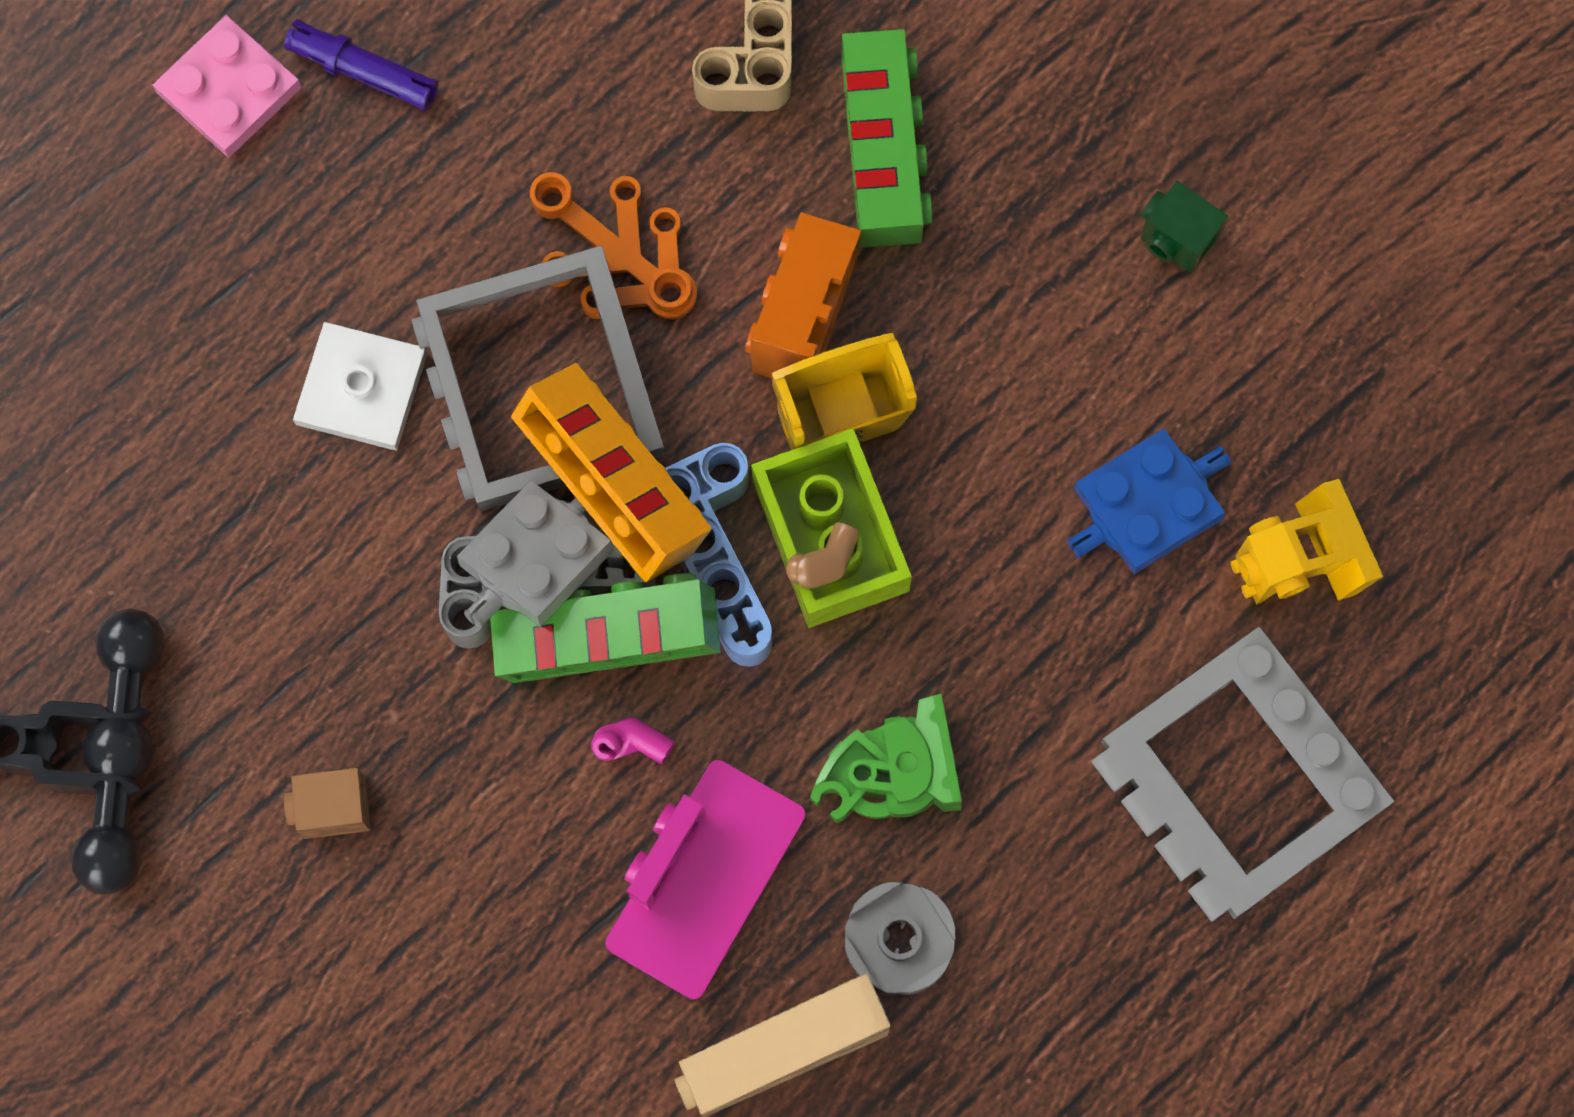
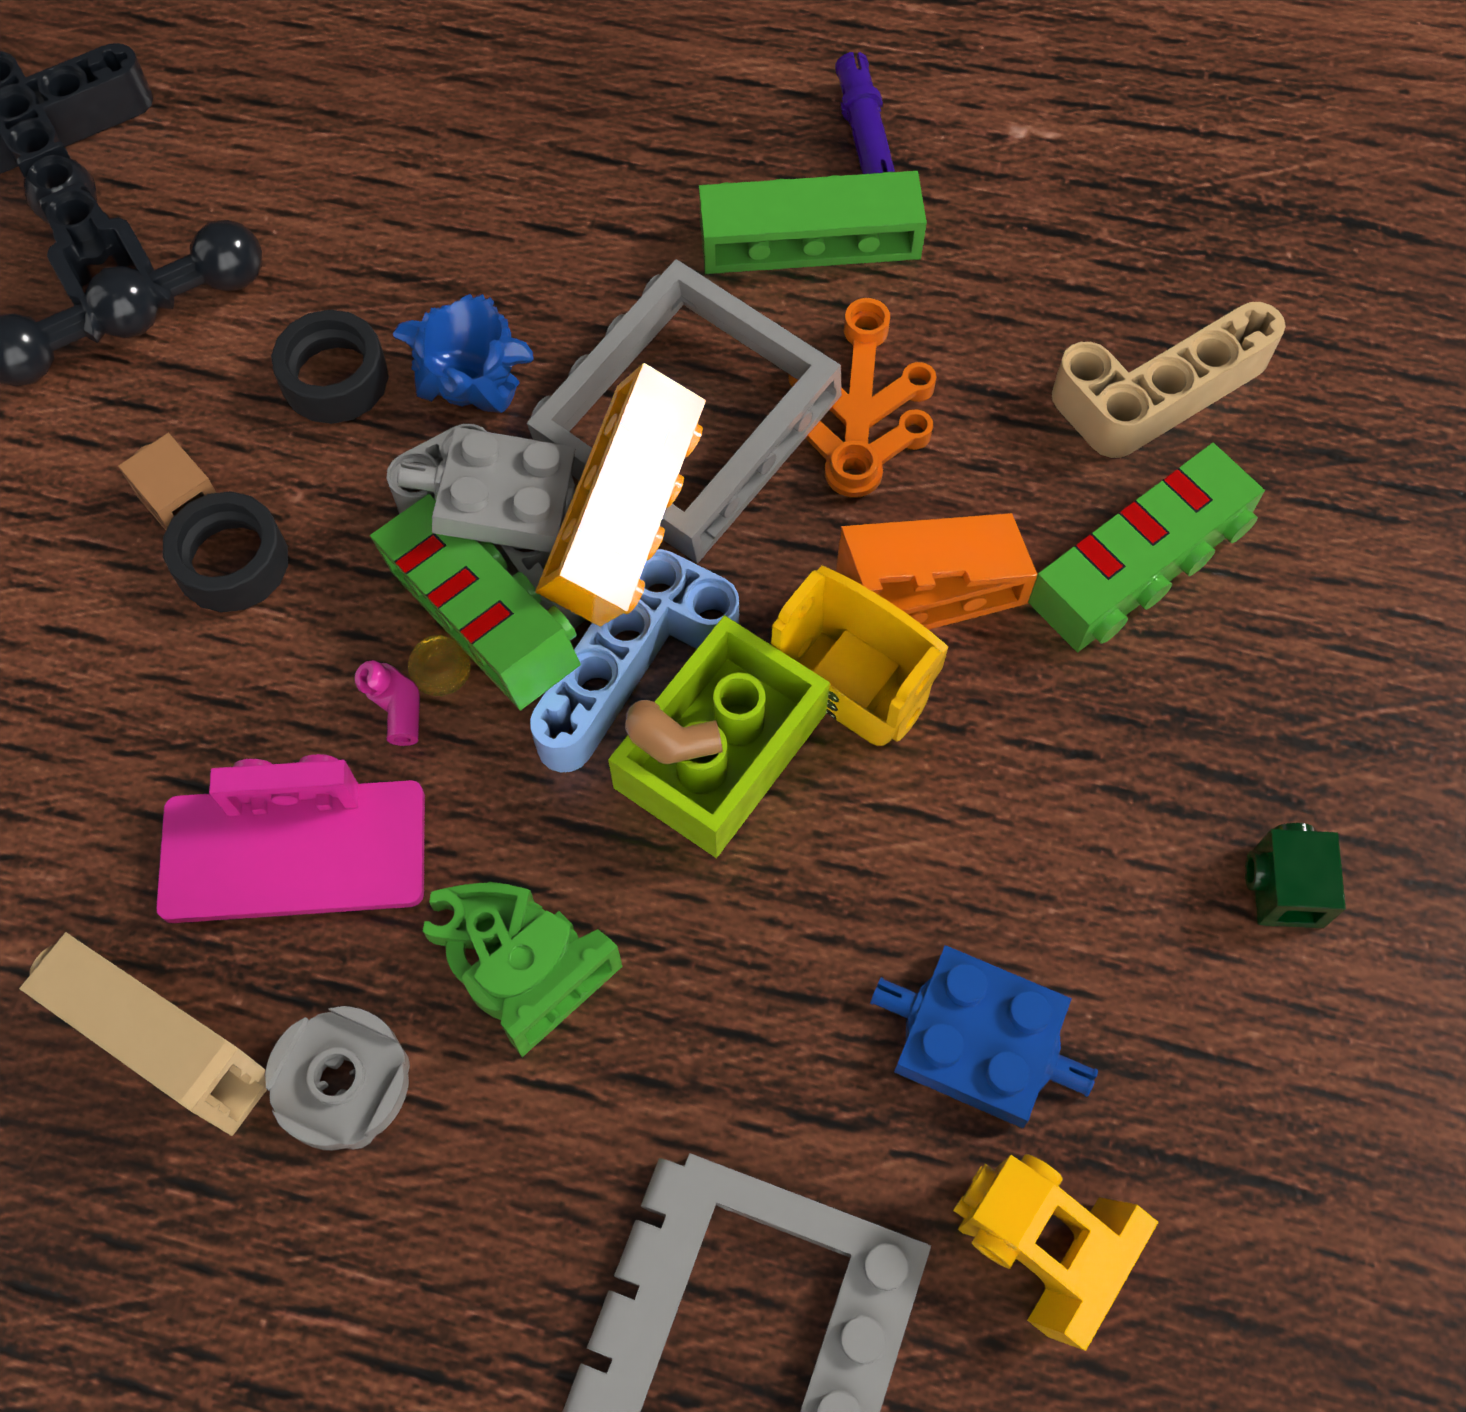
camera: 55 degrees right, 10 degrees down
(227, 86) = (772, 54): bright pink plate -> none
(280, 584) = (322, 332): none -> black tyre
(360, 386) = (578, 289): white plate -> none
(370, 511) = (465, 354): none -> blue hair
(389, 763) = (207, 517): none -> black tyre
(427, 172) = (812, 222): none -> bright green brick
(626, 692) = (439, 665): none -> clear yellow plate

